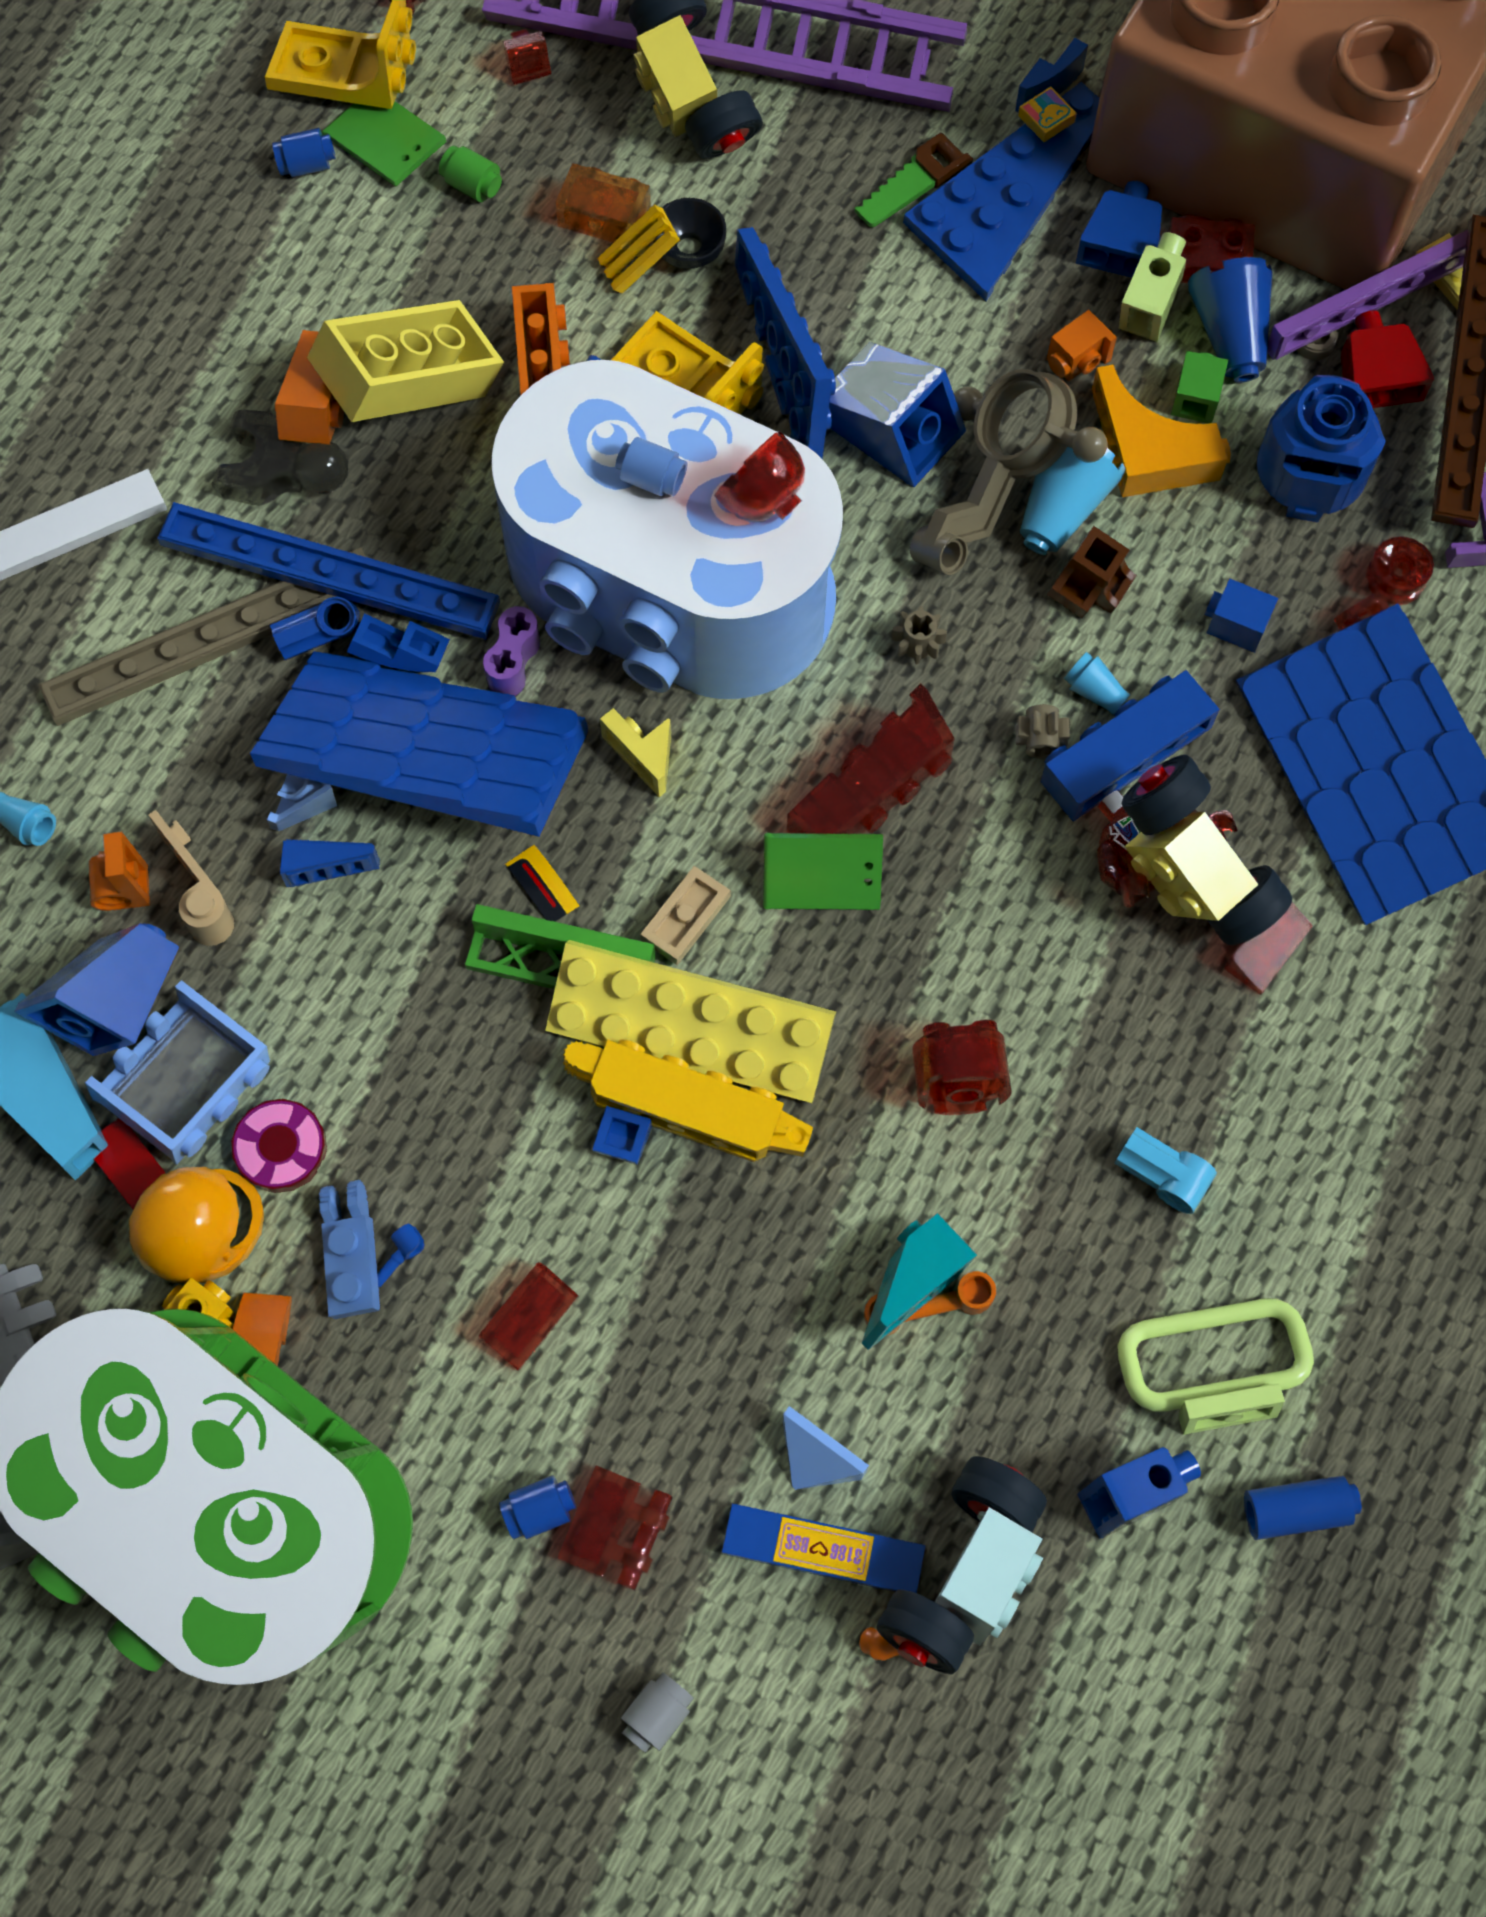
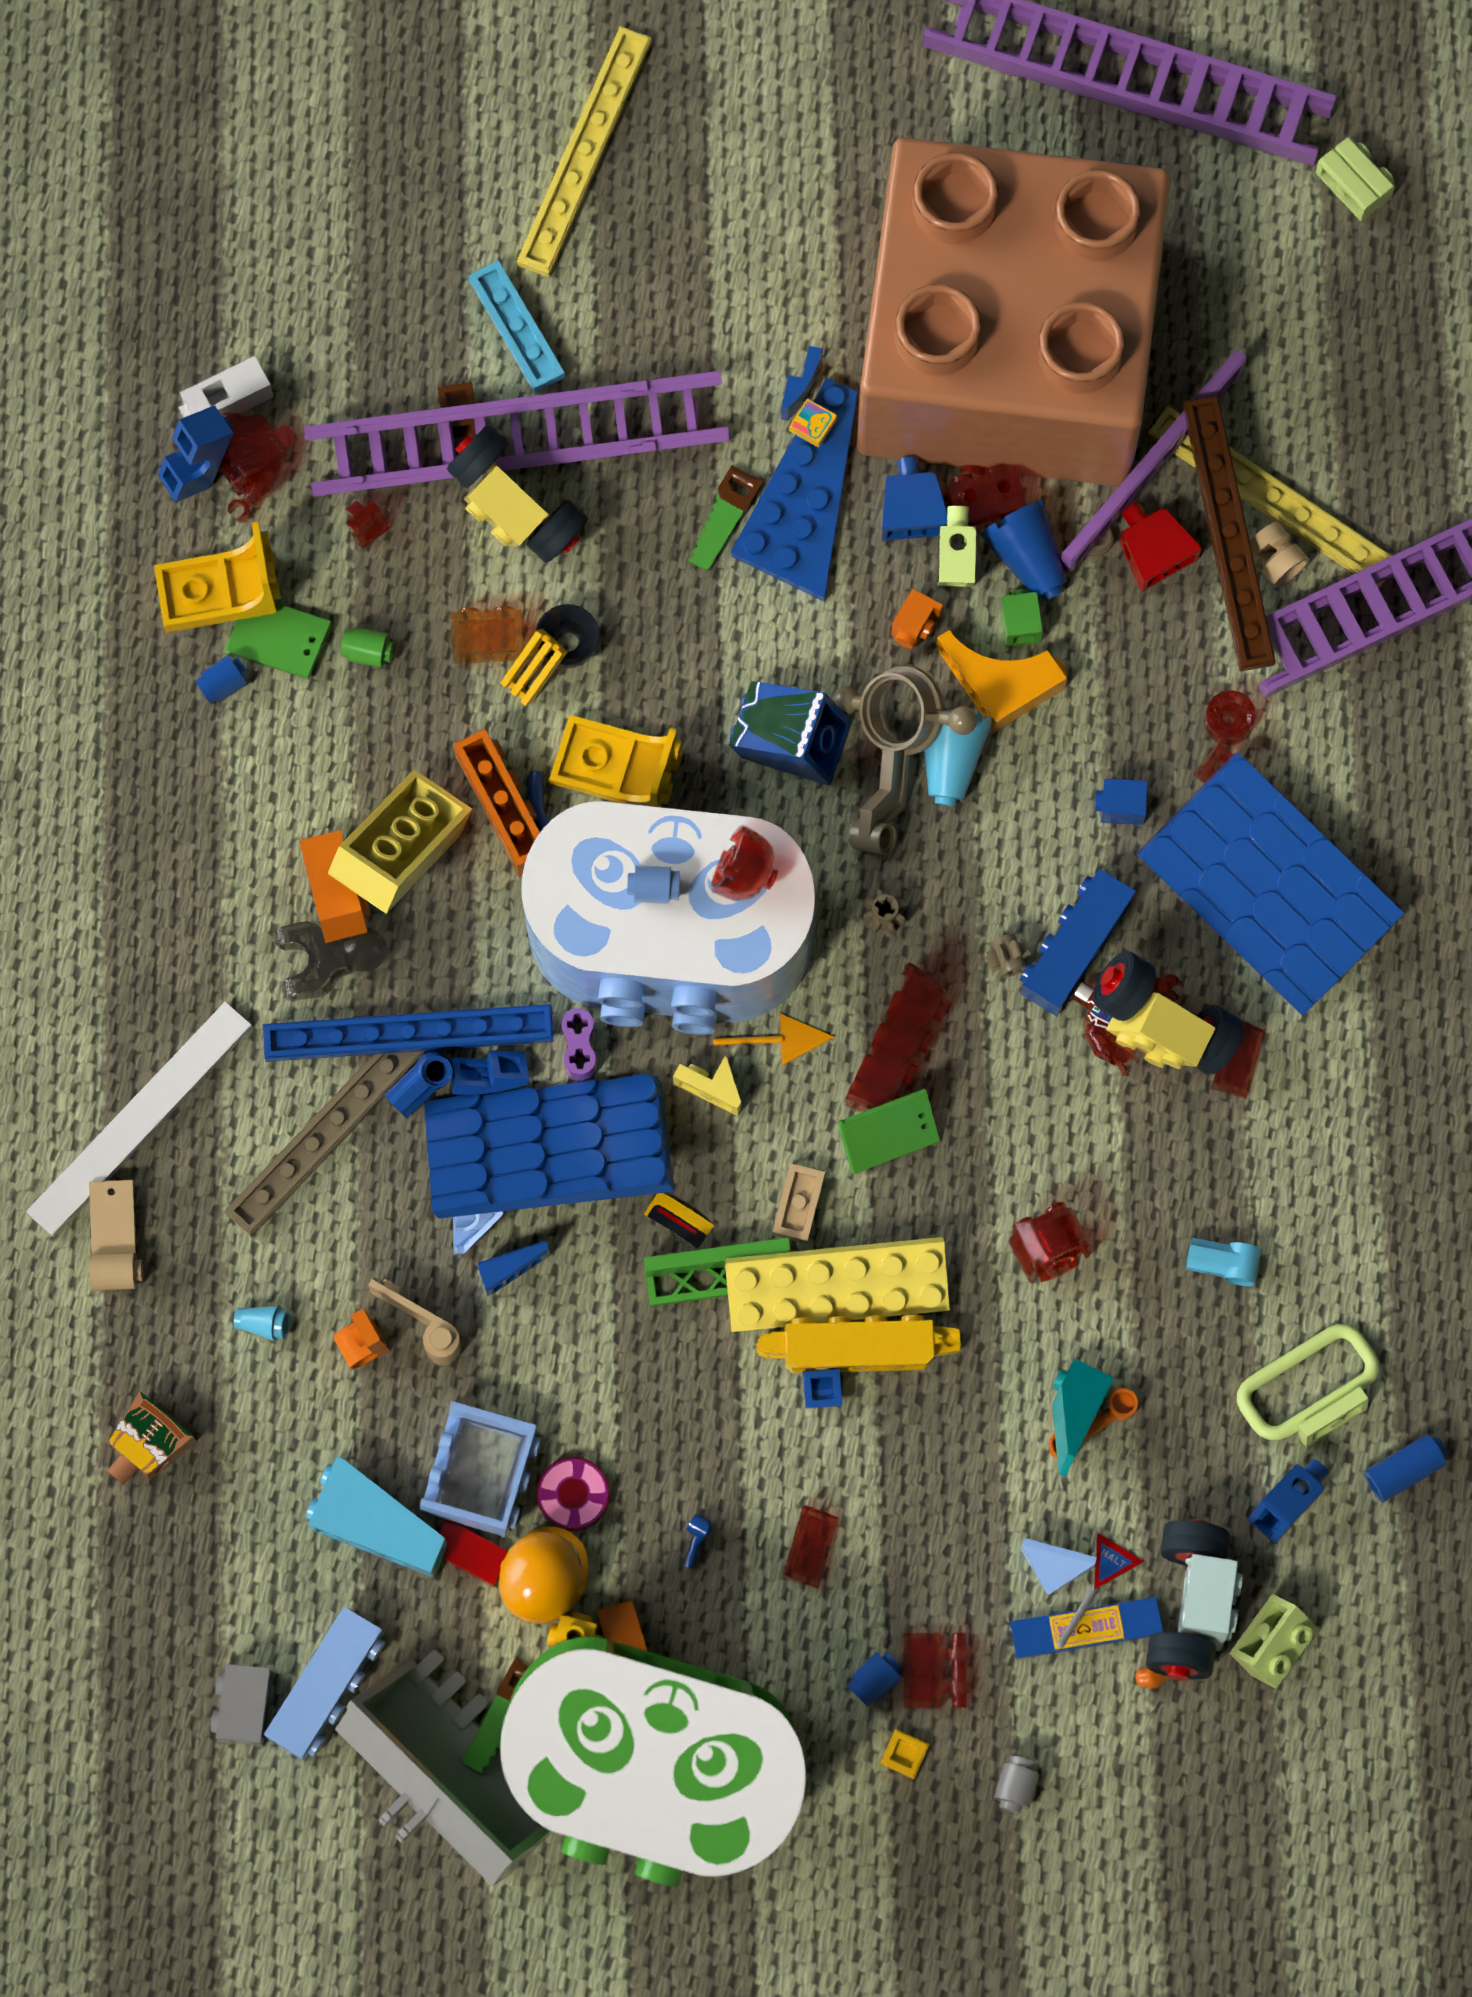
camera: 20 degrees left, 5 degrees up
(104, 991) = (401, 1430): blue slope -> none
(349, 1253) = (661, 1553): medium blue hinge -> none
(535, 1617) = (904, 1754): none -> yellow tile
(759, 738) = (795, 1039): none -> light orange piece
(795, 361) = (696, 721): blue wing -> none
(884, 1482) = (1110, 1564): none -> piece
(1052, 1660) = (1274, 1641): none -> yellowish green brick
(1094, 575) = (997, 811): reddish brown brick -> none
(1096, 683) = (1033, 899): medium azure cone -> none
(1325, 424) = (1119, 646): blue piece -> none

